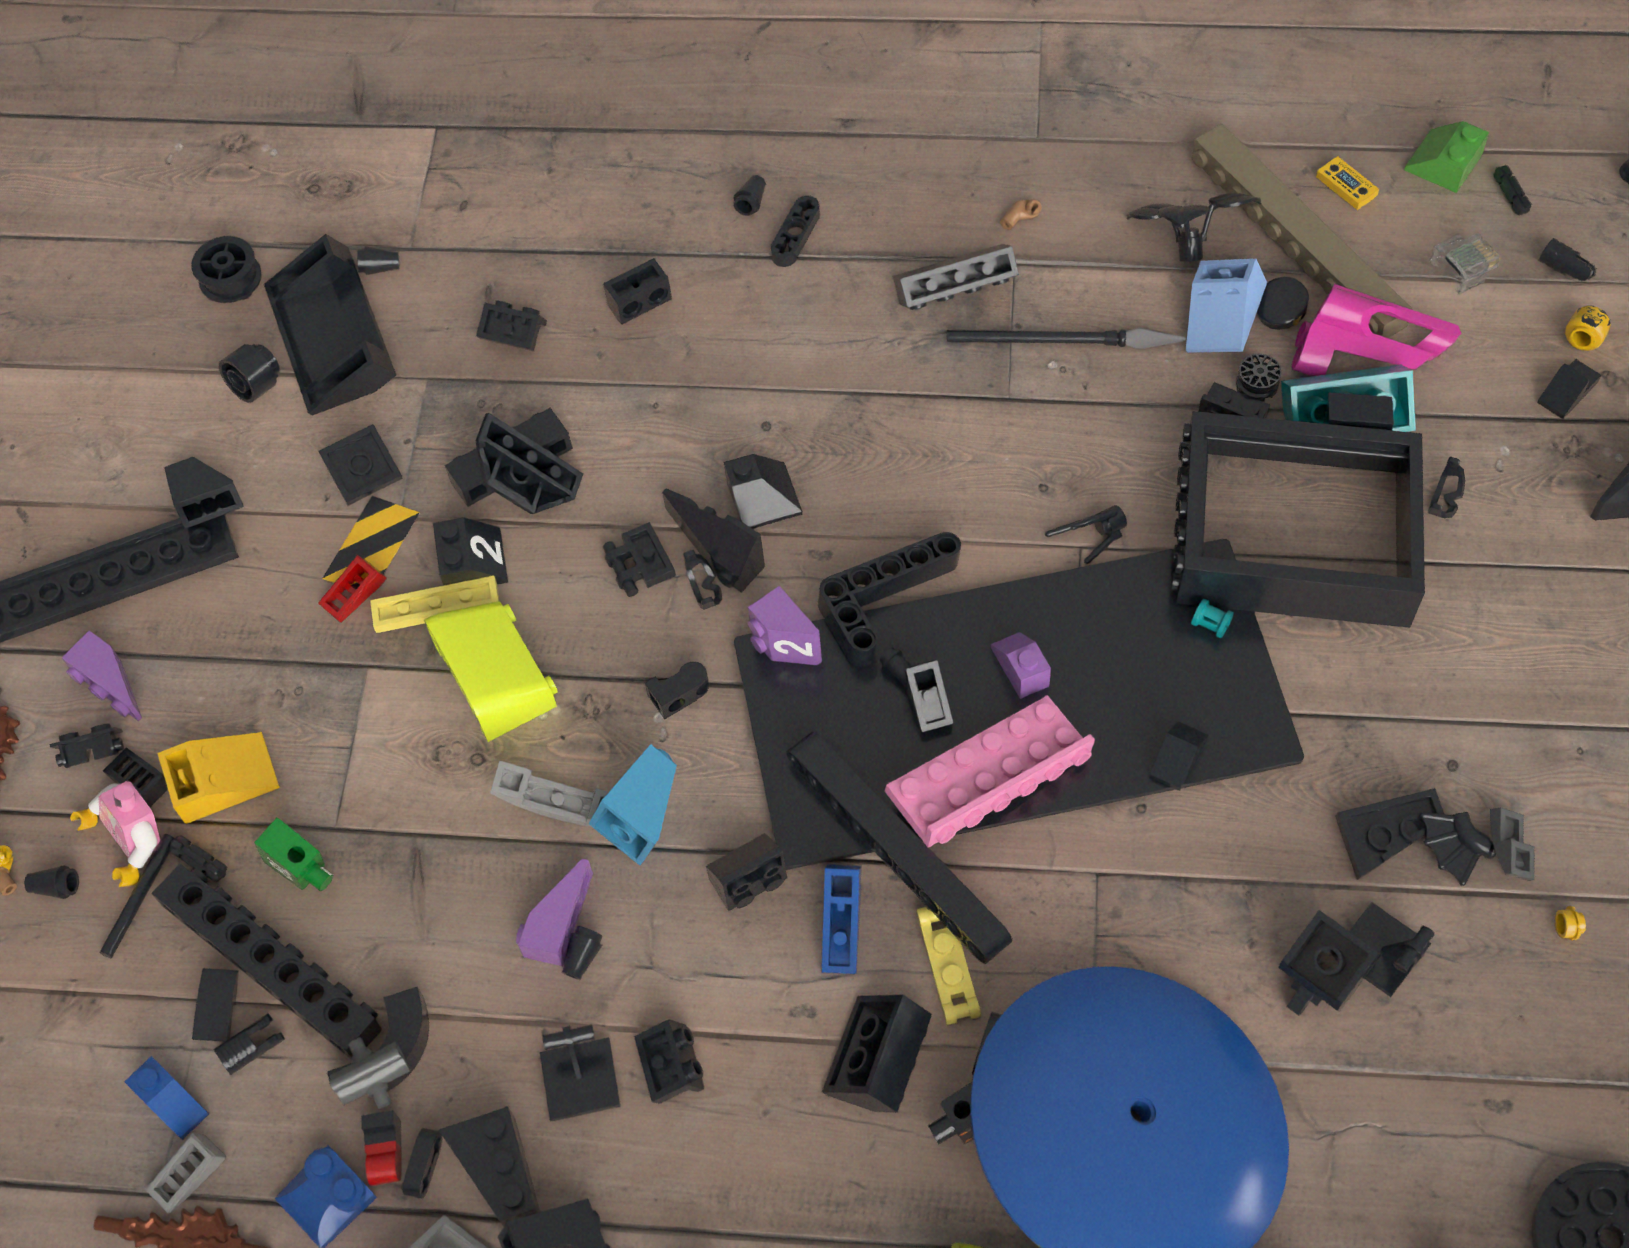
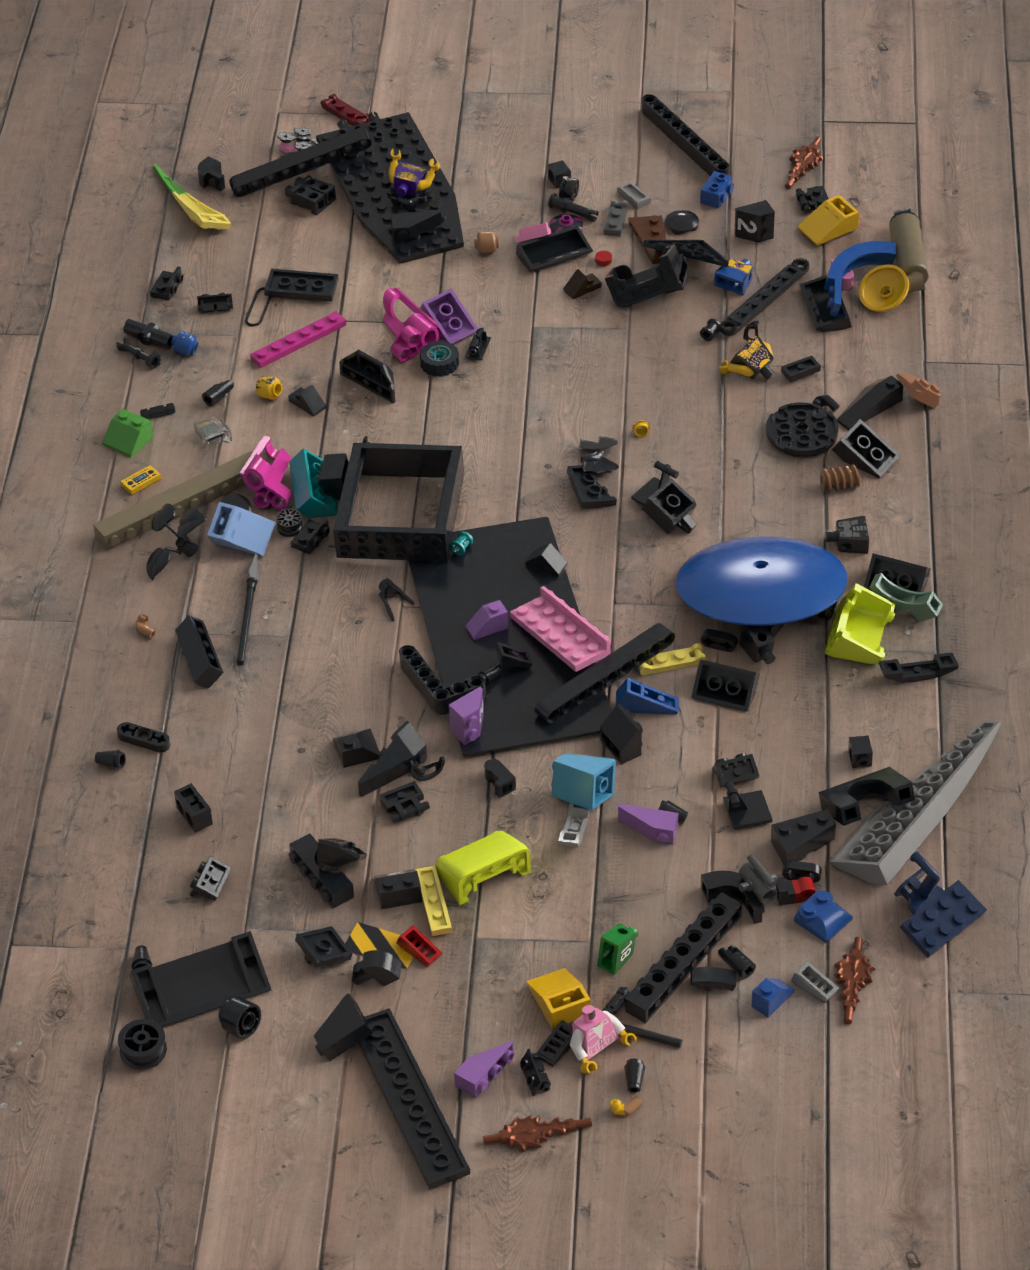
camera: 95 degrees left, 15 degrees down
(305, 532) = (377, 965): none -> black brick

